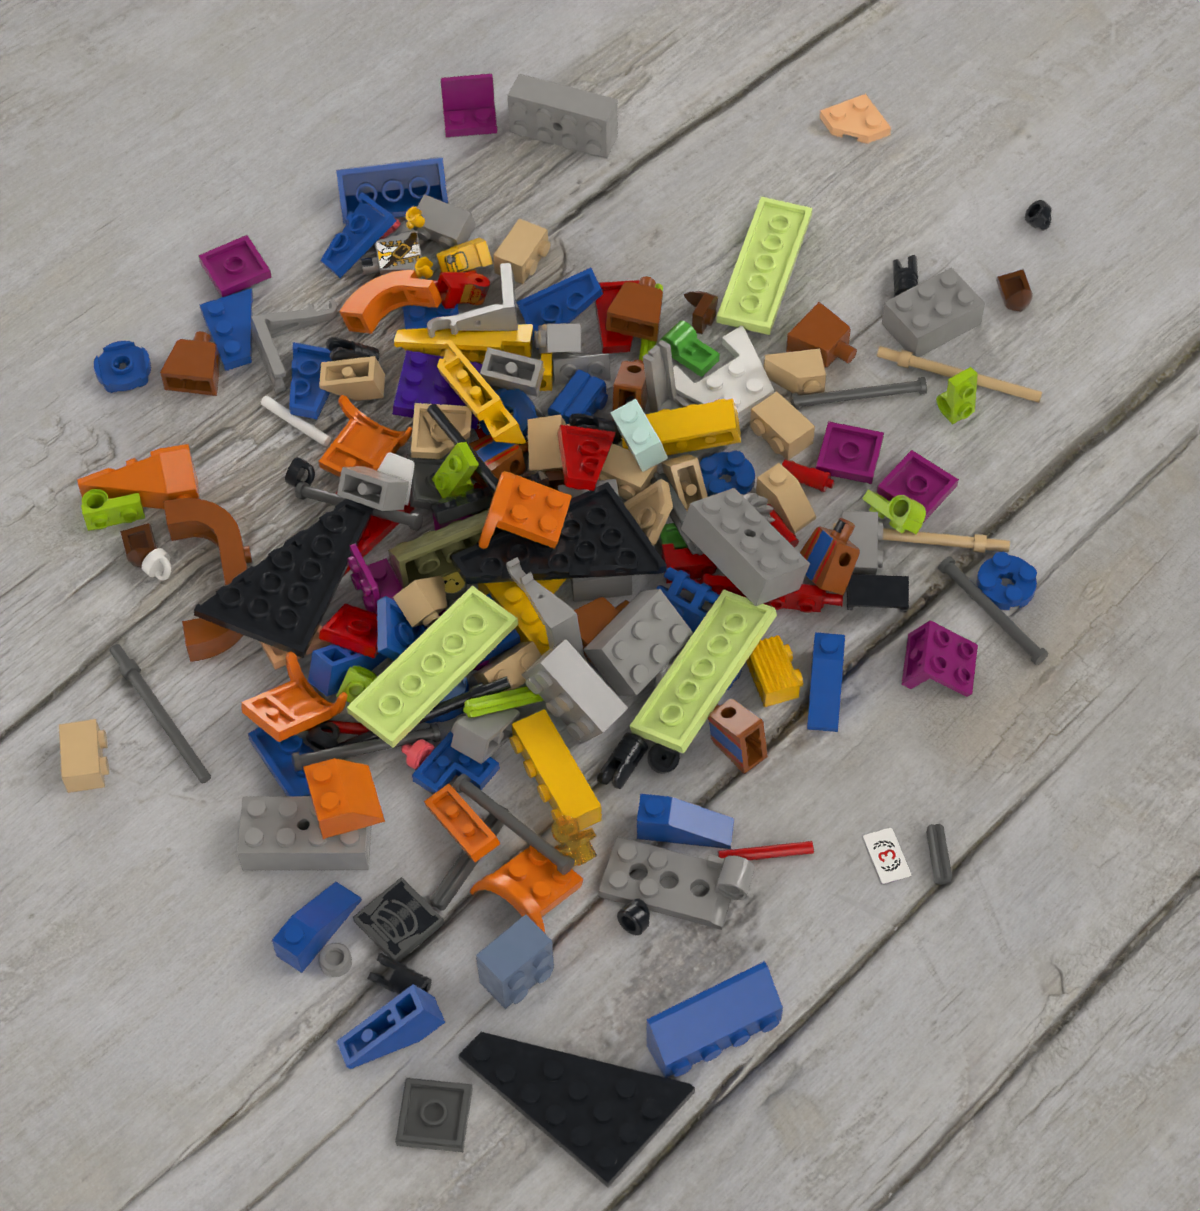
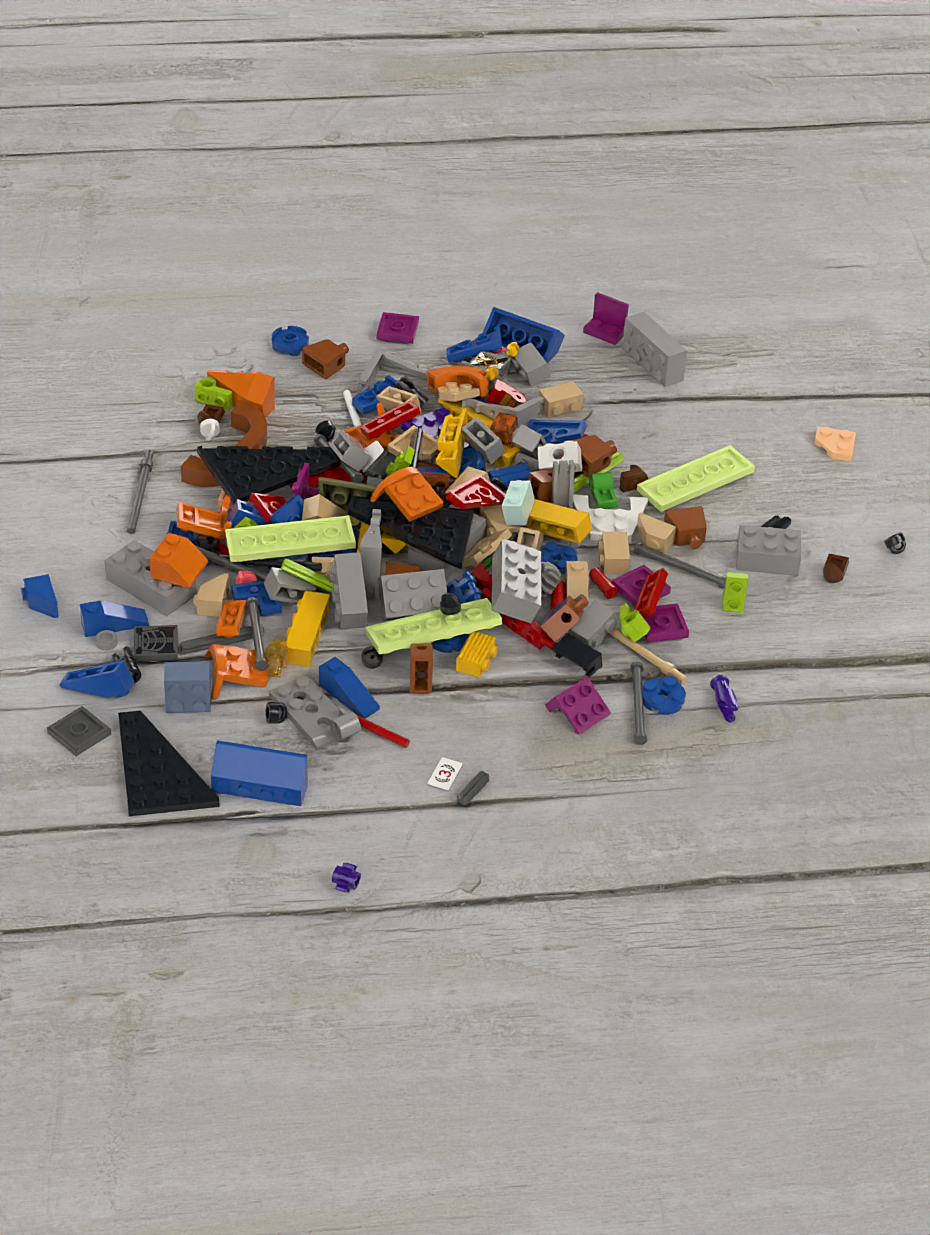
camera: 35 degrees right, 15 degrees down
(82, 755) = (82, 484): tan brick -> none
(197, 956) = (40, 595): none -> blue slope
(231, 327) = (363, 352): blue wing -> none
(373, 411) = (390, 419): none -> red plate
(406, 807) = (212, 596): none -> tan slope
(407, 322) = (454, 393): none -> tan plate
(465, 256) = (525, 384): yellow leg -> none
(517, 336) = (504, 427): none -> clear orange brick
(623, 760) = (348, 645): black hinge -> none
(637, 336) = (549, 453): none -> white brick
(701, 630) = (450, 604): none -> black tile
(826, 682) = (501, 675): blue slope -> none
(883, 459) = (651, 593): none -> red plate
(907, 359) = (729, 565): tan bar -> none
(936, 1083) = (346, 877): none -> dark purple gear
(1073, 540) = (724, 697): none -> dark purple piece

